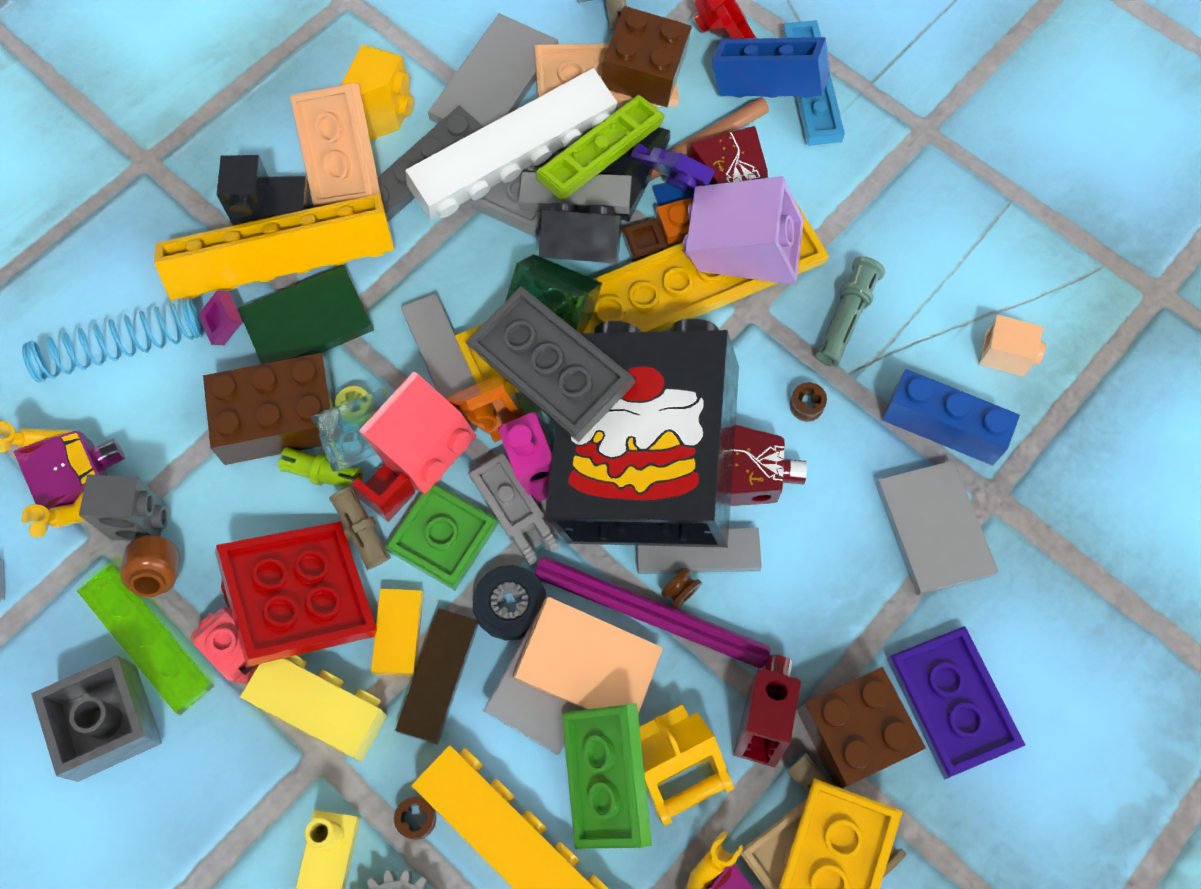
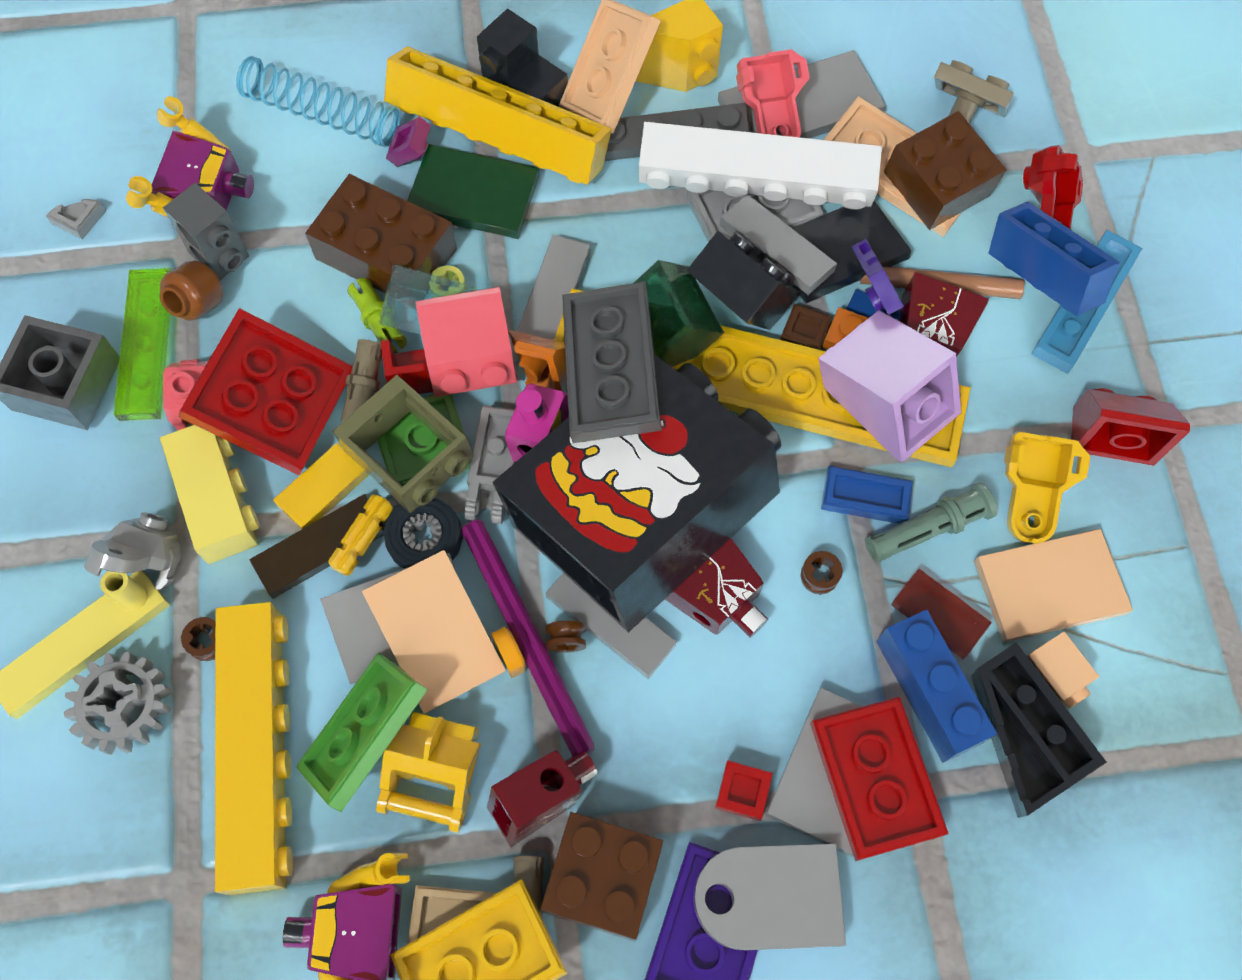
camera: 40 degrees right, 0 degrees up
(303, 796) = (138, 546): none -> light grey piece
(400, 539) = (378, 417): none -> olive window
(467, 640) = (360, 535): none -> yellow axle
(474, 83) = (771, 88): none -> coral piece
(599, 147) = (831, 219): lime plate -> none
(651, 631) = (509, 651): none -> light orange tile
(788, 325) = (866, 495): none -> blue tile
(888, 364) = (955, 620): none -> clear red tile
(891, 224) = (1039, 474): none -> yellow piece
(893, 590) = (743, 790): none -> red plate
(912, 148) = (1127, 426): none -> red slope
(956, 292) = (1052, 585): none -> light nougat tile
(970, 508) = (878, 779): none -> red tile
(980, 640) = (778, 897): none -> light grey tile
(1050, 398) = (1036, 735): none -> black wedge

